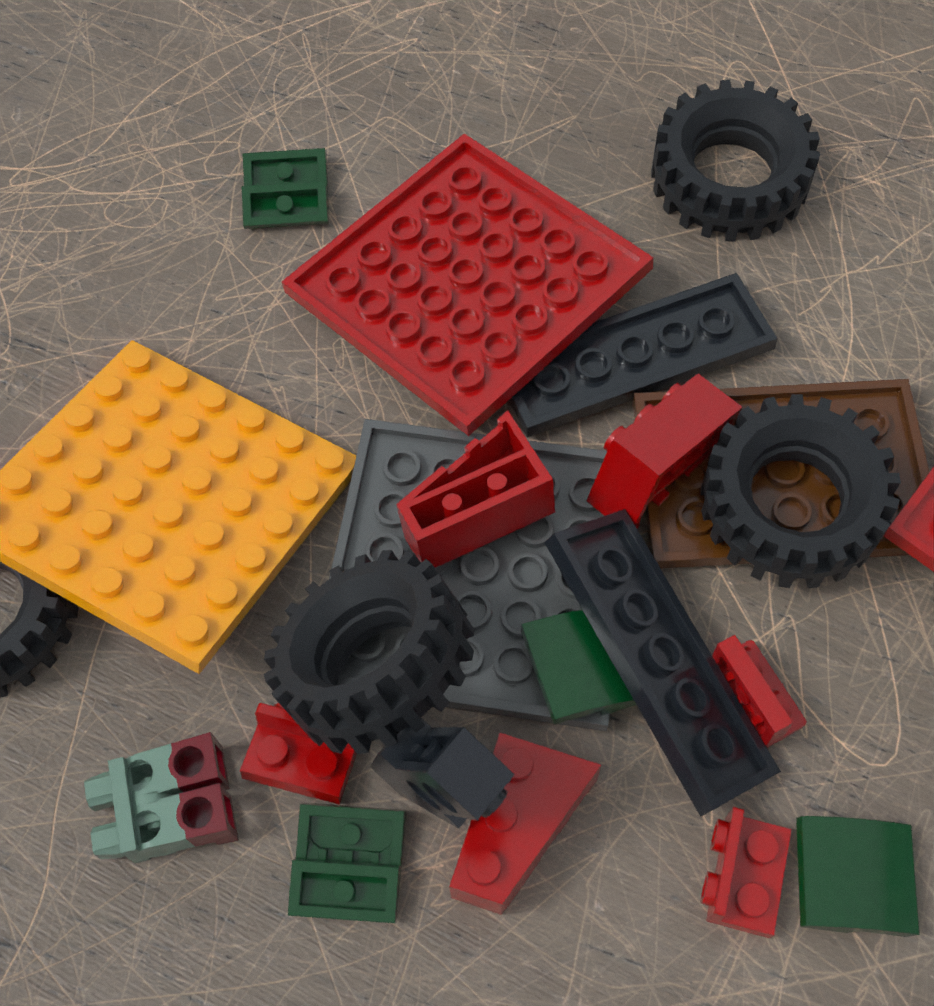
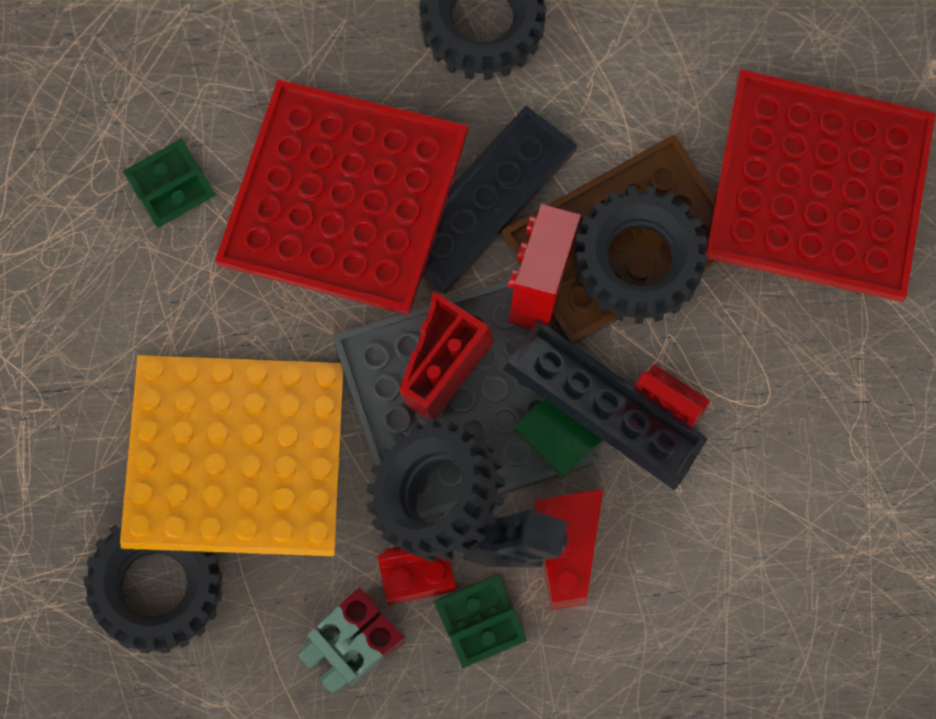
camera: 30 degrees left, 10 degrees up
(747, 874) = (715, 508): red bracket -> none
(856, 876) = (777, 478): dark green slope -> none

